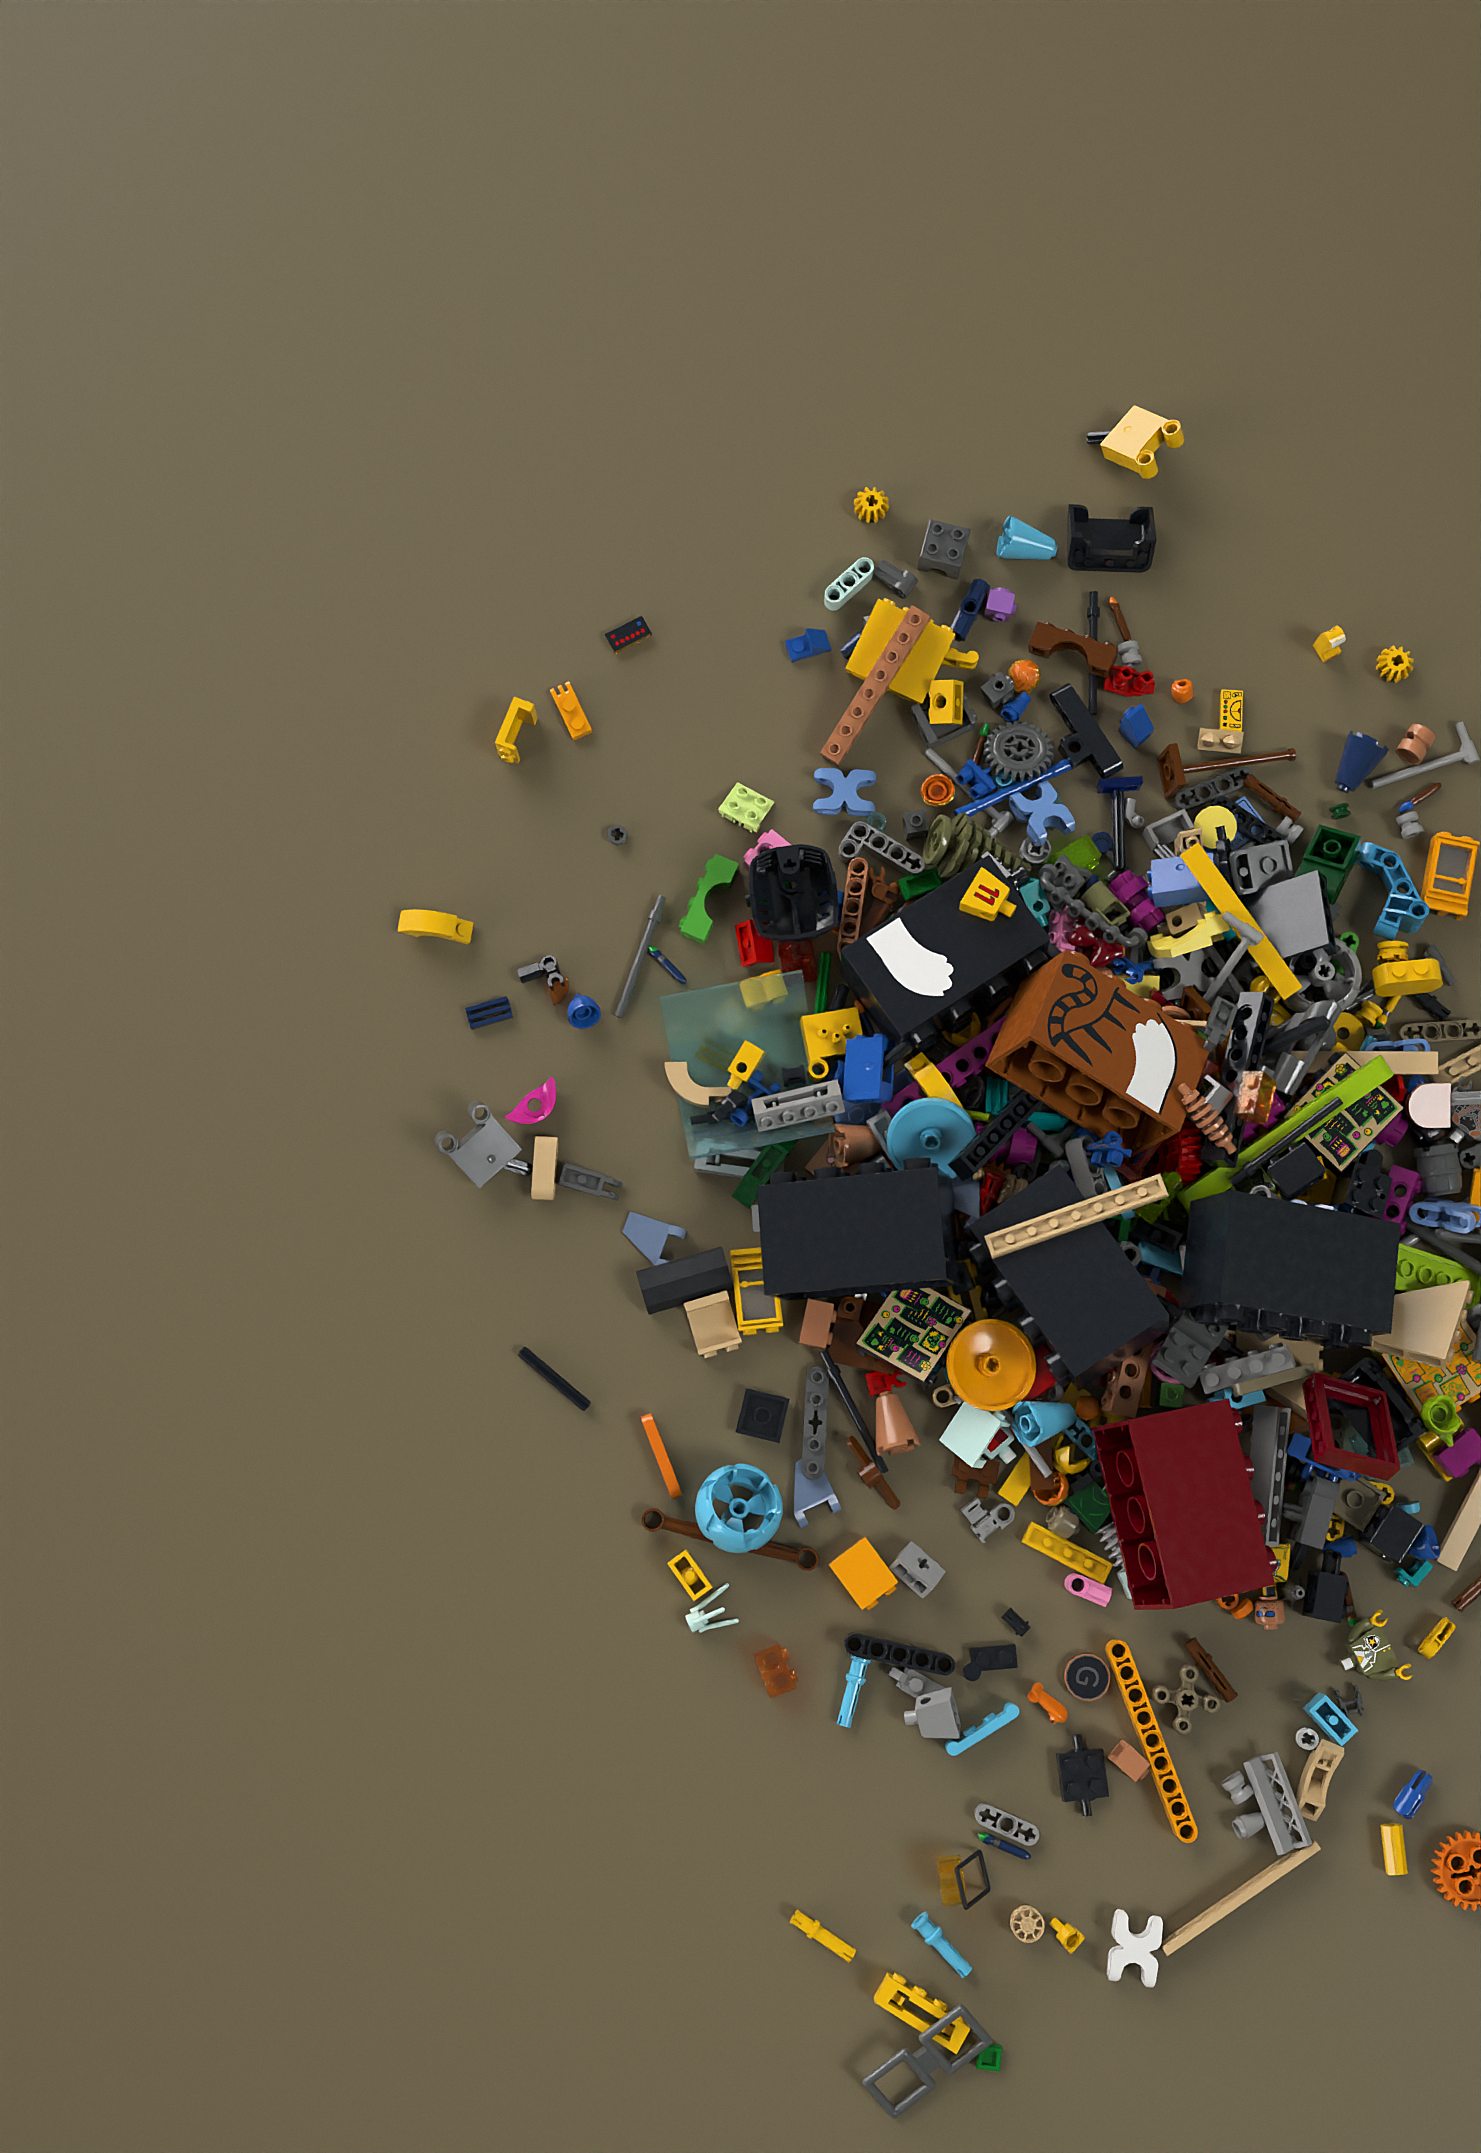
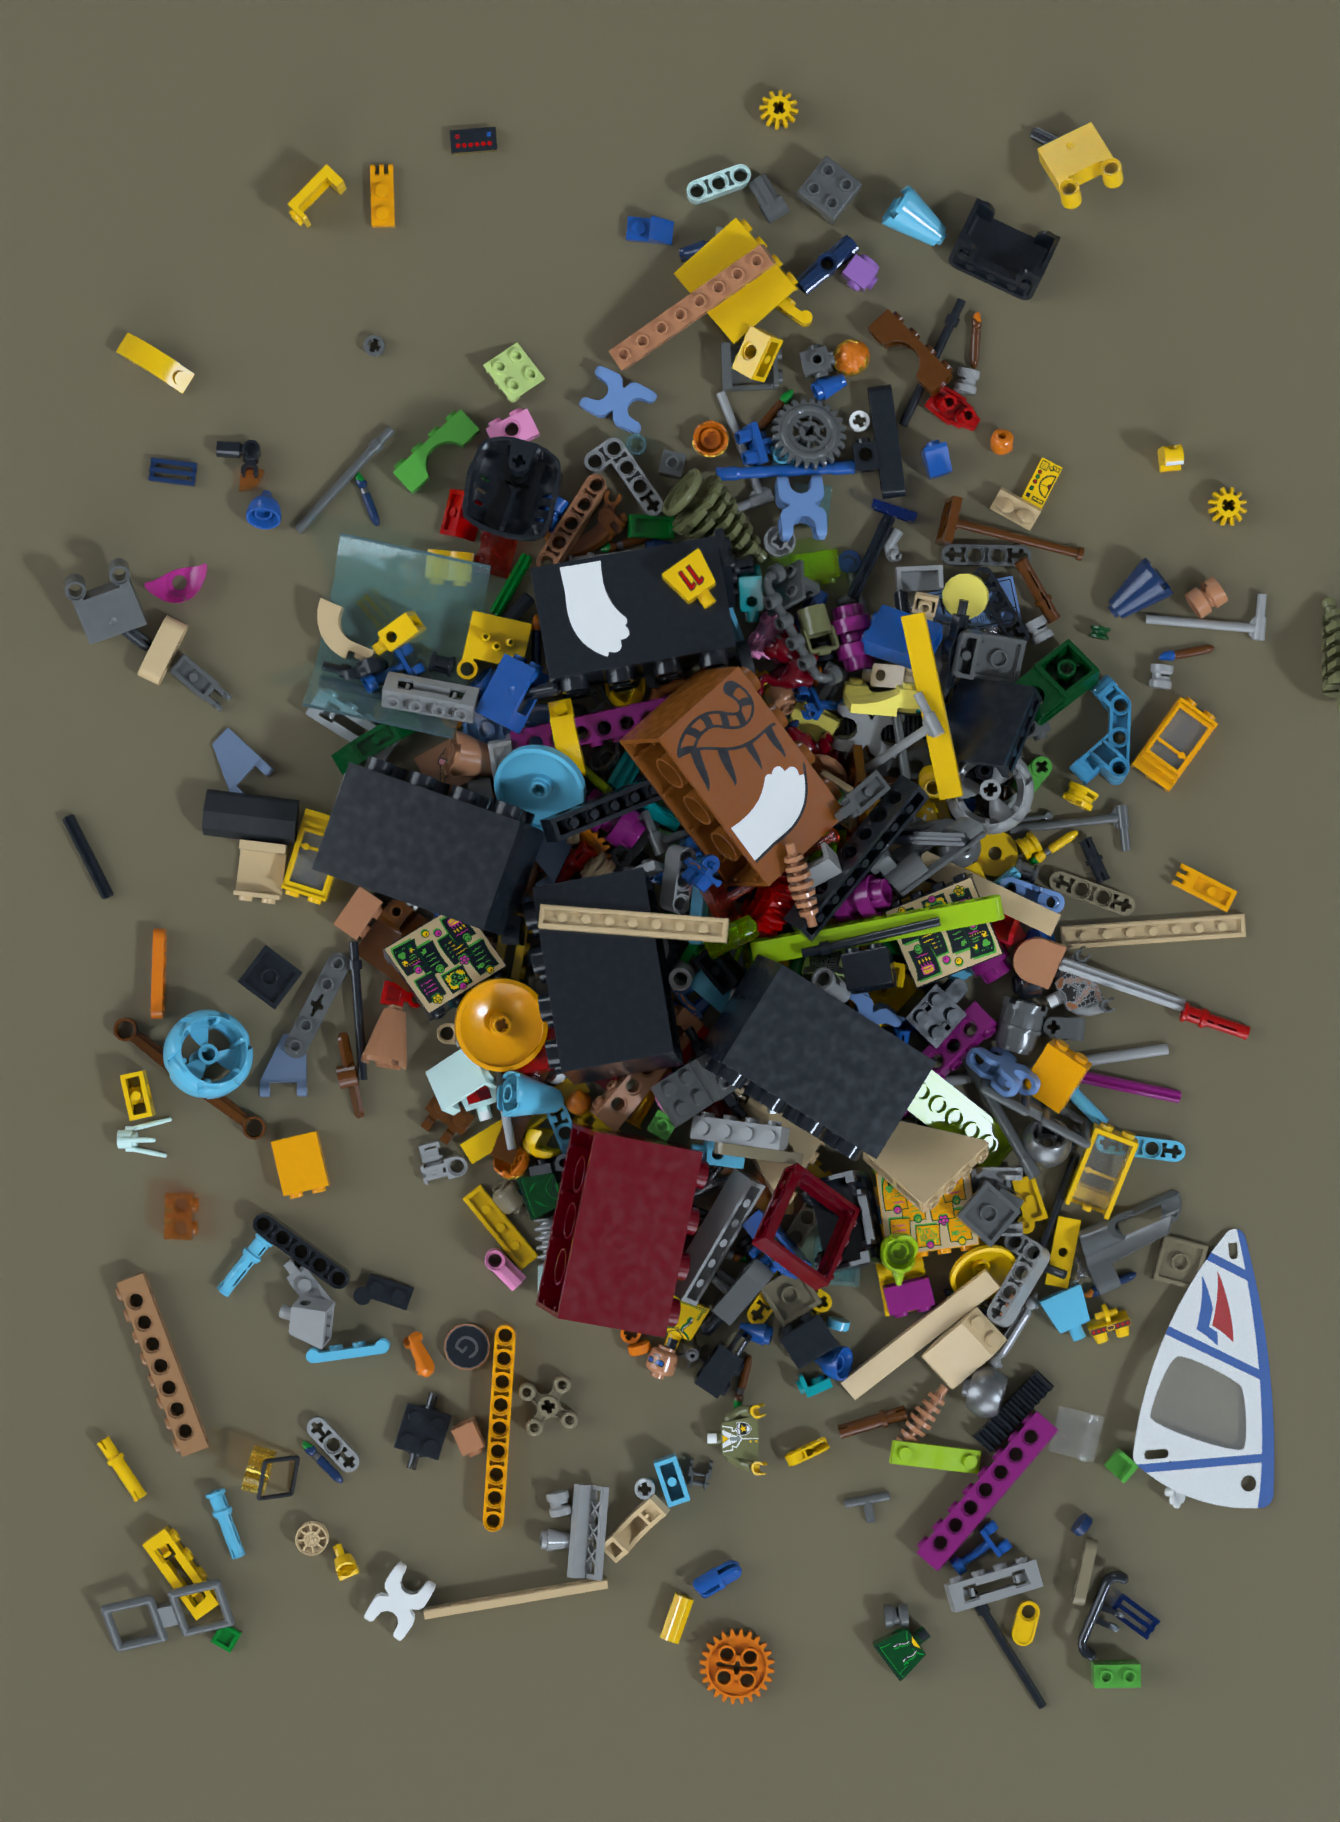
camera: 20 degrees right, 10 degrees up
(881, 1875) = (140, 1285): none -> medium nougat brick
(917, 1569) = (352, 1181): light grey brick -> none
(1016, 1622) = (423, 1269): black pin -> none
(1055, 731) = (862, 414): none -> white bush
(1194, 1647) = (578, 1362): reddish brown pin -> none
(1255, 1097) = (860, 883): clear orange brick -> none
(1407, 977) = (1078, 827): yellow brick -> none

